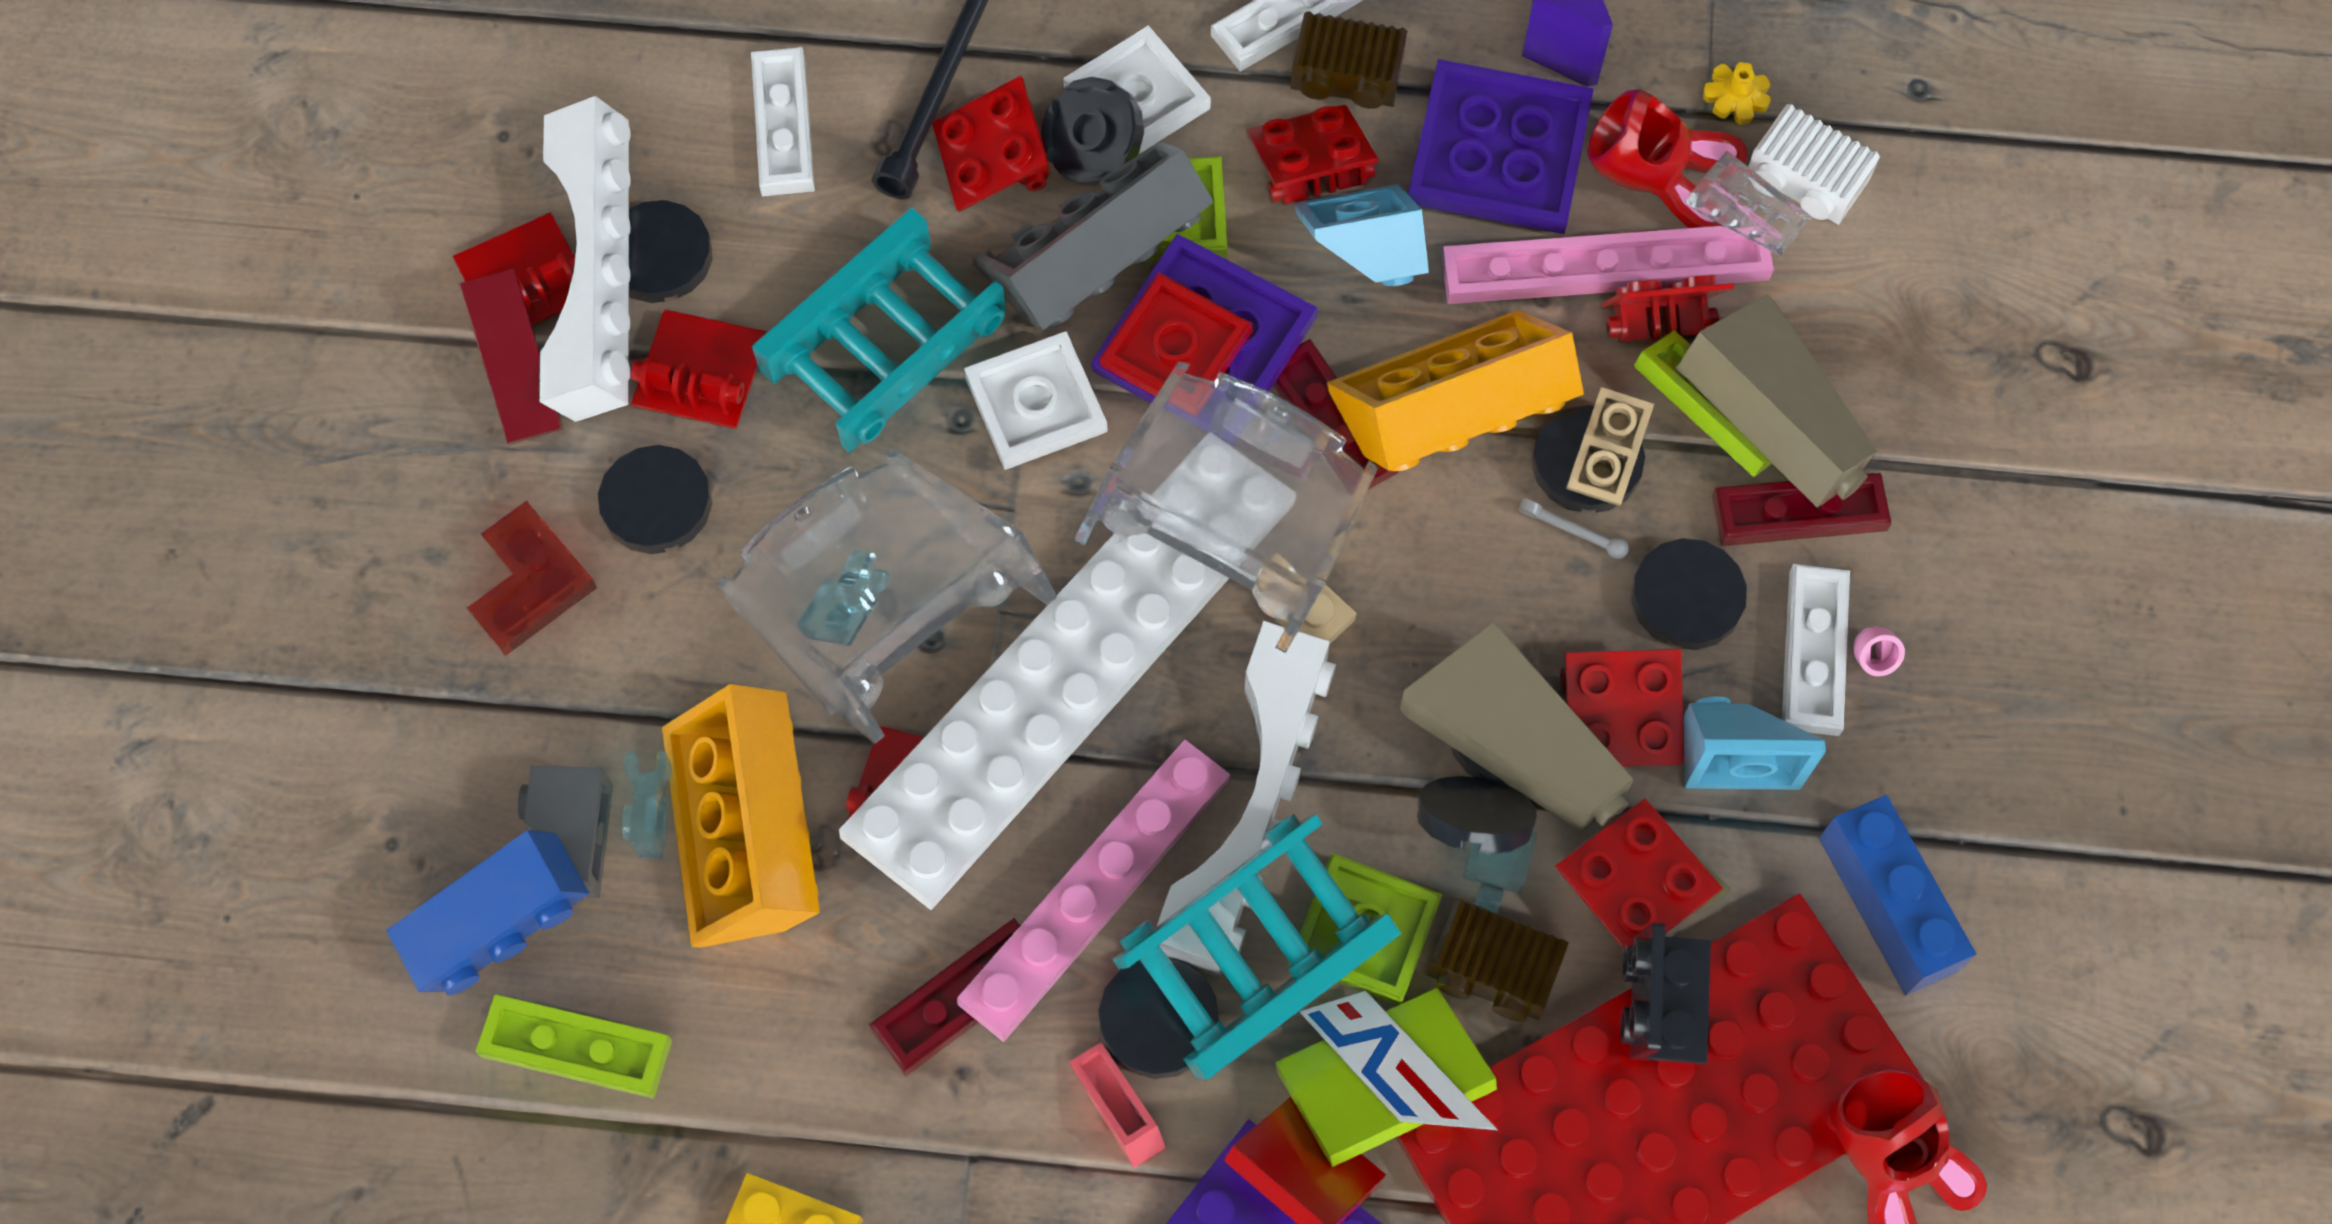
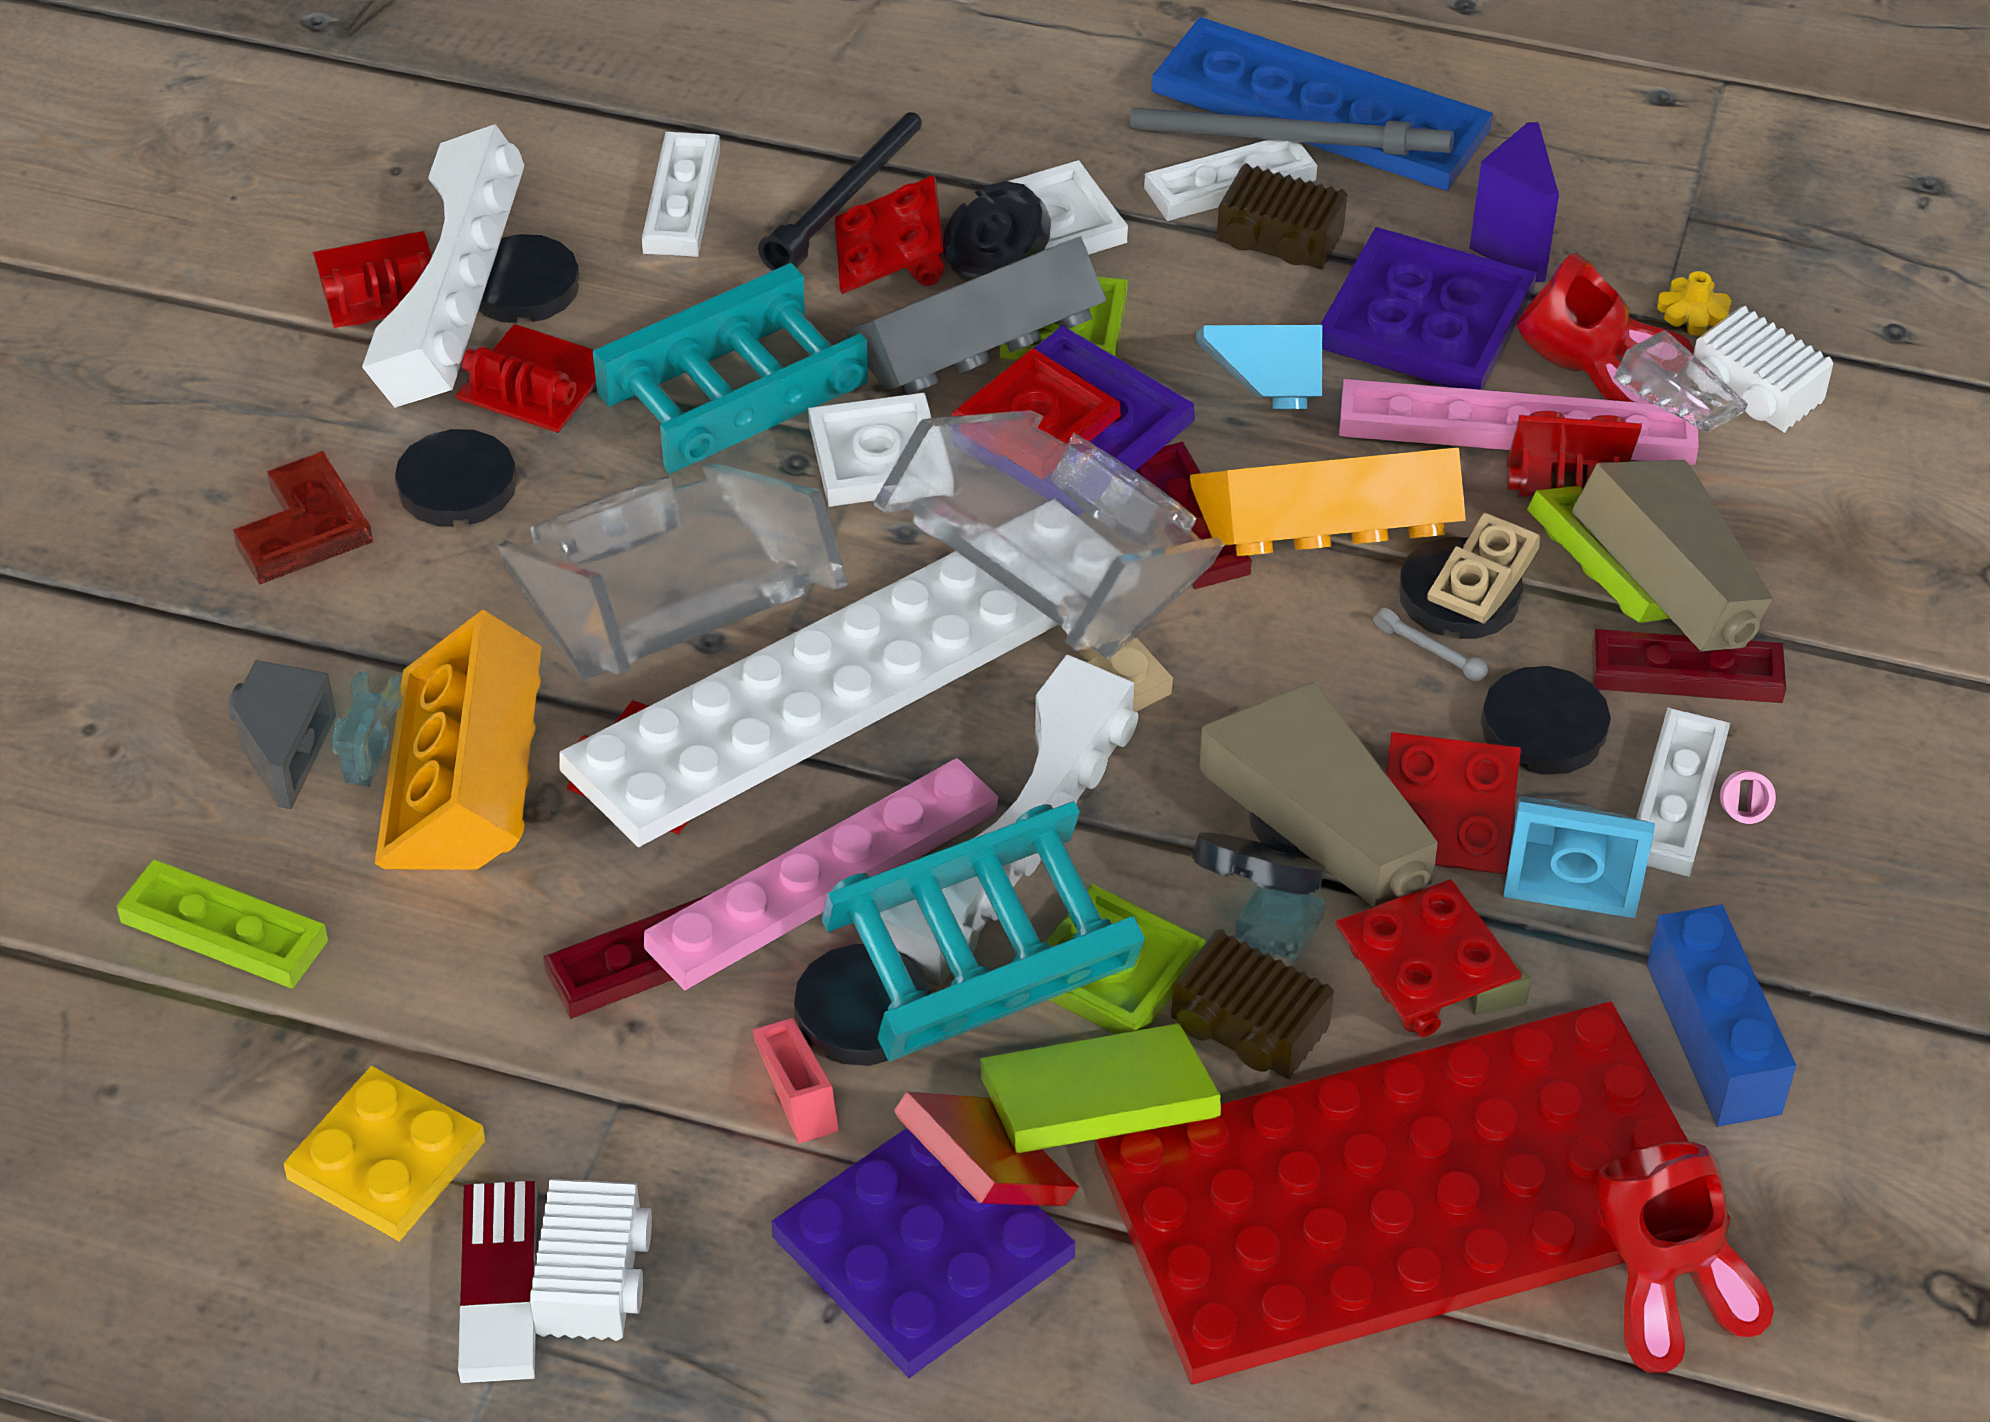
camera: 10 degrees right, 20 degrees down
(488, 913) = (169, 776): blue brick -> none
(509, 354) = (344, 329): dark red tile -> none
(844, 605) = (636, 572): clear light blue plate -> none
(1313, 147) = (1247, 277): red hinge -> none
(1392, 1063) = (1109, 1071): white sticker -> none
(1668, 997) = (1427, 1047): black bracket -> none

